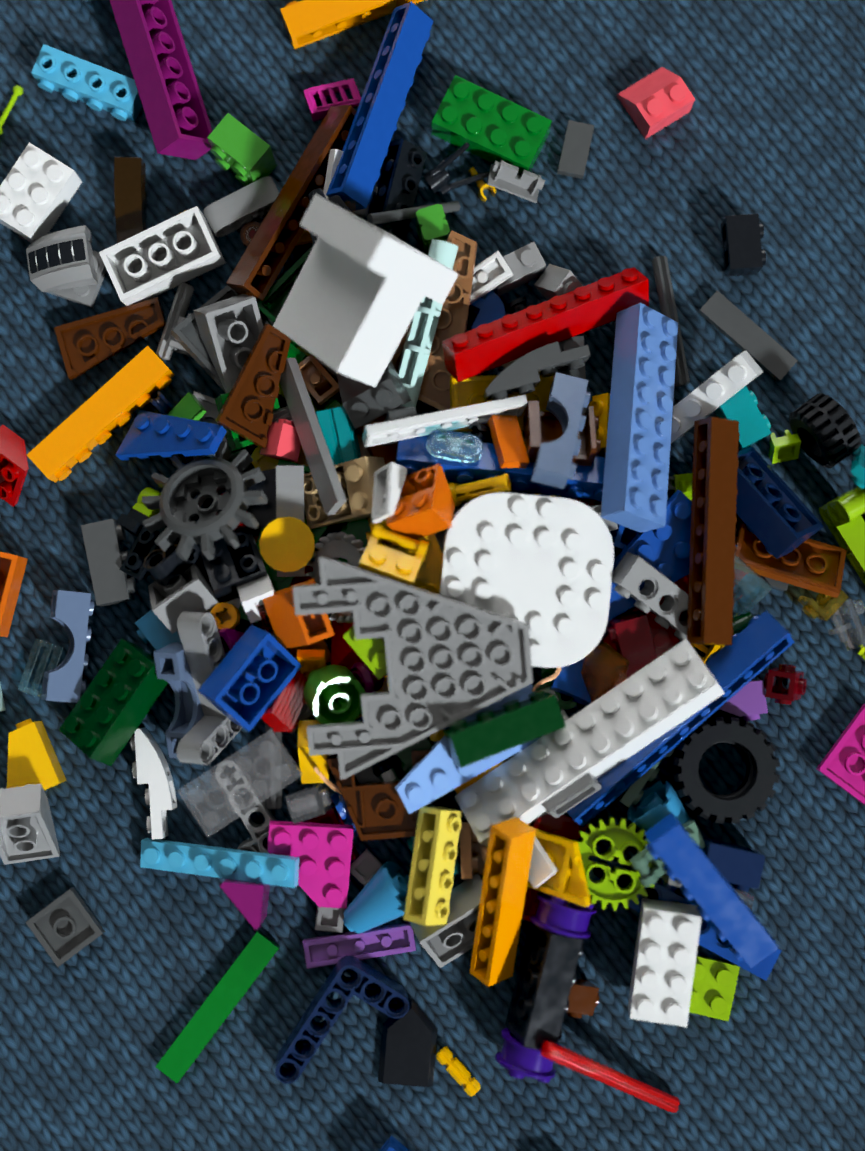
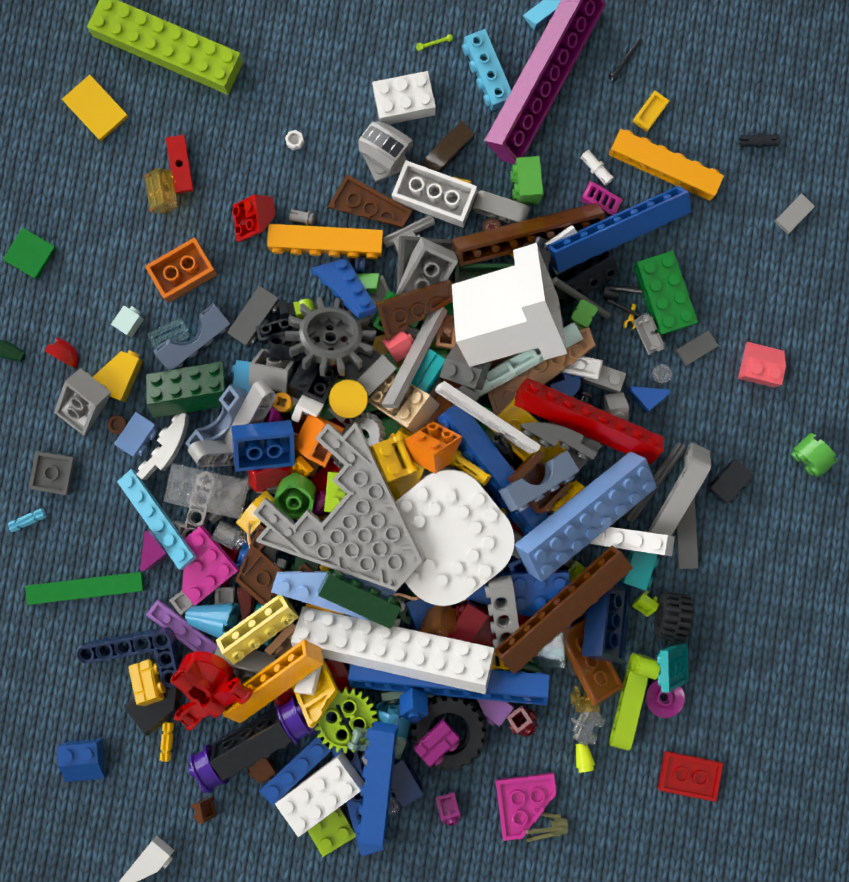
camera: 40 degrees right, 0 degrees up
(53, 415) = (302, 217): none -> light grey pin
(81, 810) = (116, 424): none -> reddish brown tile
(89, 999) = (27, 520): none -> medium azure axle
(112, 800) = (137, 435): none -> medium blue brick
(296, 71) = (597, 167): none -> white pin
(378, 1034) = (146, 682): none -> yellow brick
(386, 490) = (422, 423): white slope -> none
(393, 852) = (245, 602): none -> clear red slope
(444, 972) = (209, 686): none -> red piece
(454, 446) = (479, 435): clear light blue plate -> none
(508, 441) = (508, 460): orange tile -> none
(565, 1099) = (204, 810): none -> reddish brown tile
(567, 208) = (662, 373): none -> clear plate
(572, 795) = (359, 665): light grey tile -> none
(578, 244) = (648, 397): none -> blue slope
(609, 1076) = (236, 822): red axle -> none
(613, 964) = (295, 769): none -> blue brick
(665, 778) = (413, 705): none -> blue brick
(701, 266) = (697, 466): none -> light grey beam
(727, 791) = (437, 743): none -> magenta brick
(796, 136) = (815, 455): none -> bright green brick
(801, 845) = (448, 809): none -> magenta bracket

